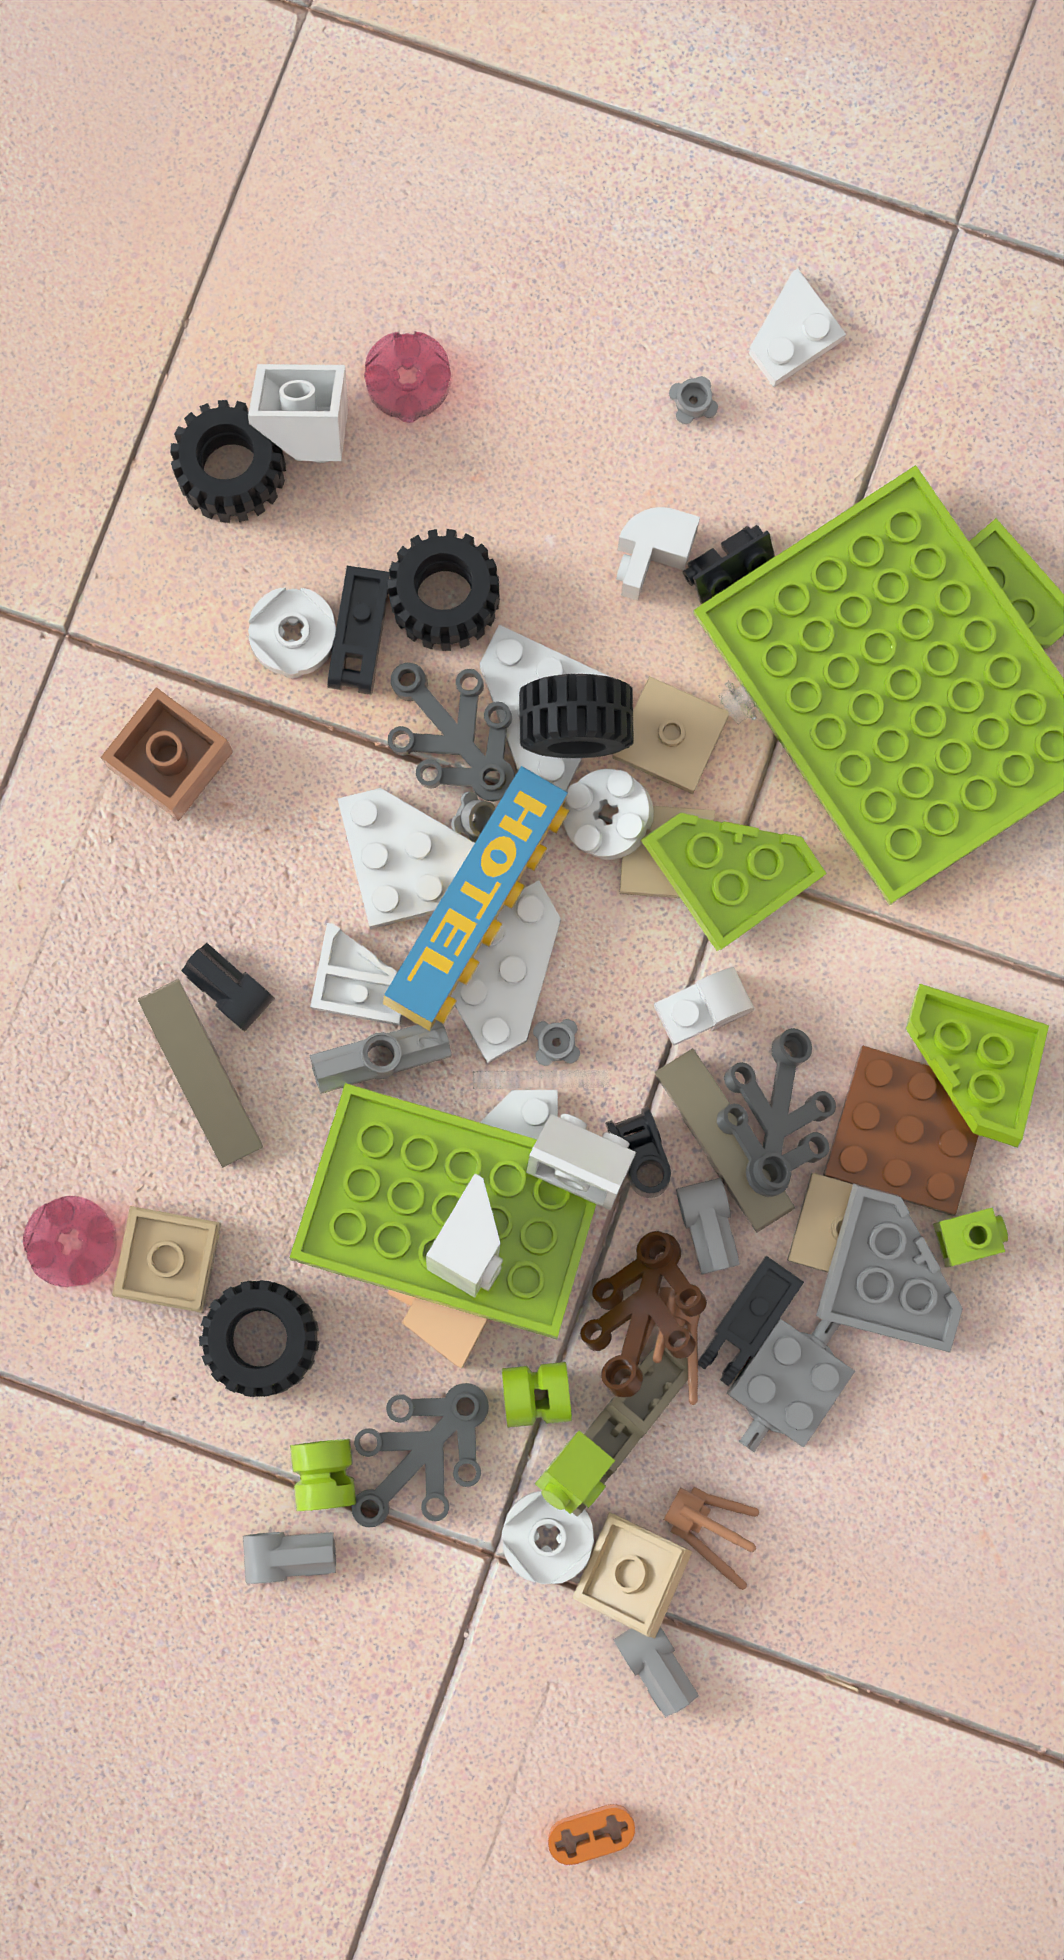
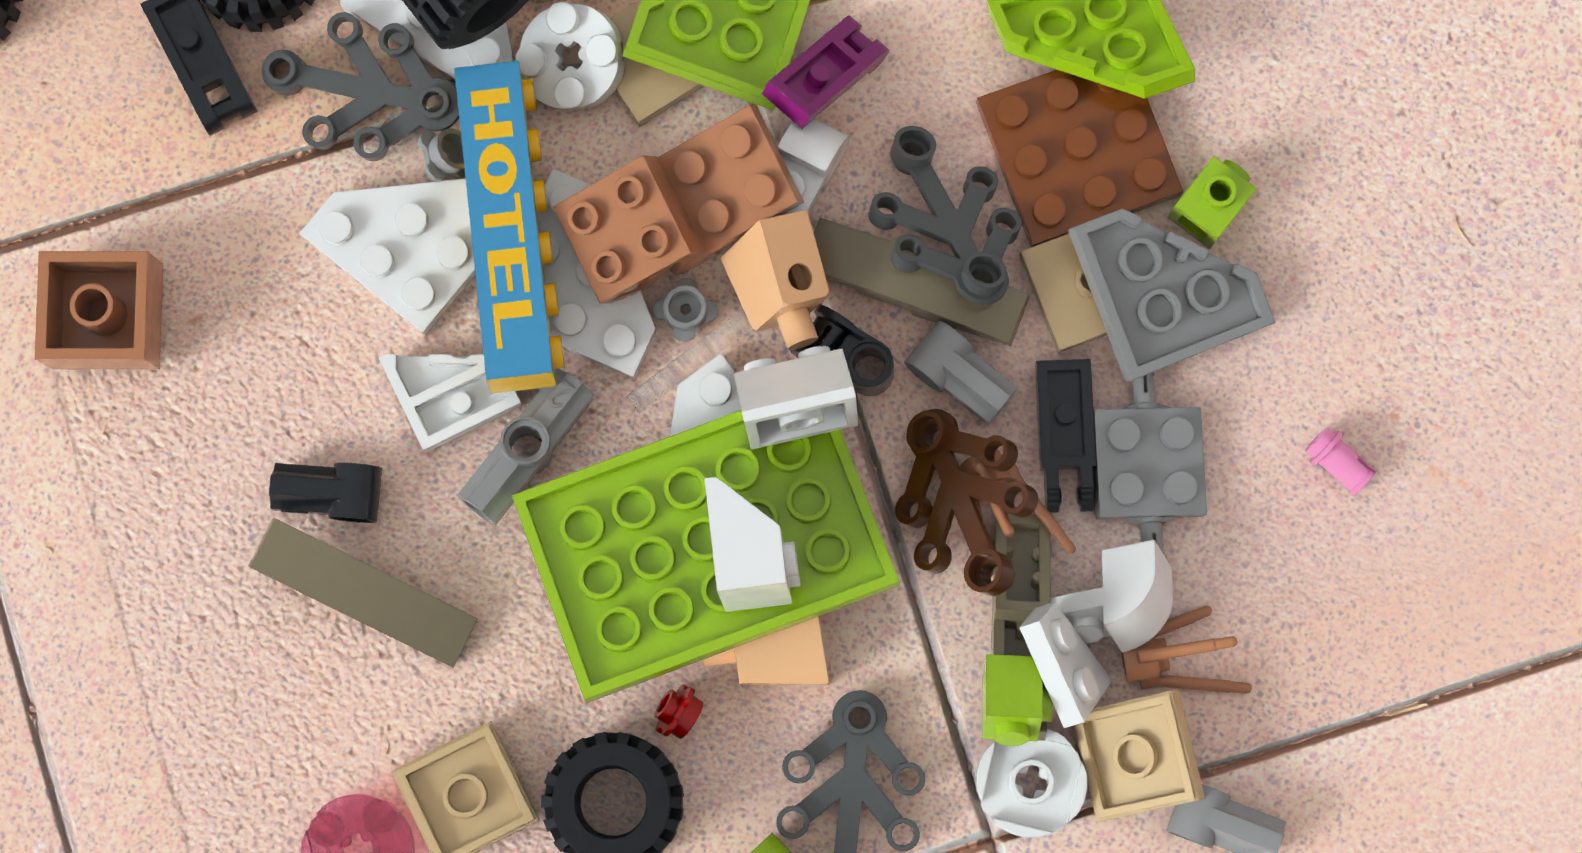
camera: 35 degrees left, 0 degrees up
(292, 606) = (117, 82): white plate -> none
(347, 1310) = (678, 712): none -> red plate
(520, 1398) = (905, 668): lime wheel -> none
(601, 971) = (677, 206): none -> nougat piece
(628, 1476) = (1065, 664): none -> white wing
(633, 1070) = (779, 276): none -> light nougat torso
(702, 1469) = (1131, 602): none -> white brick
(769, 952) = (824, 72): none -> magenta plate
(923, 1480) = (1340, 460): none -> bright pink pin

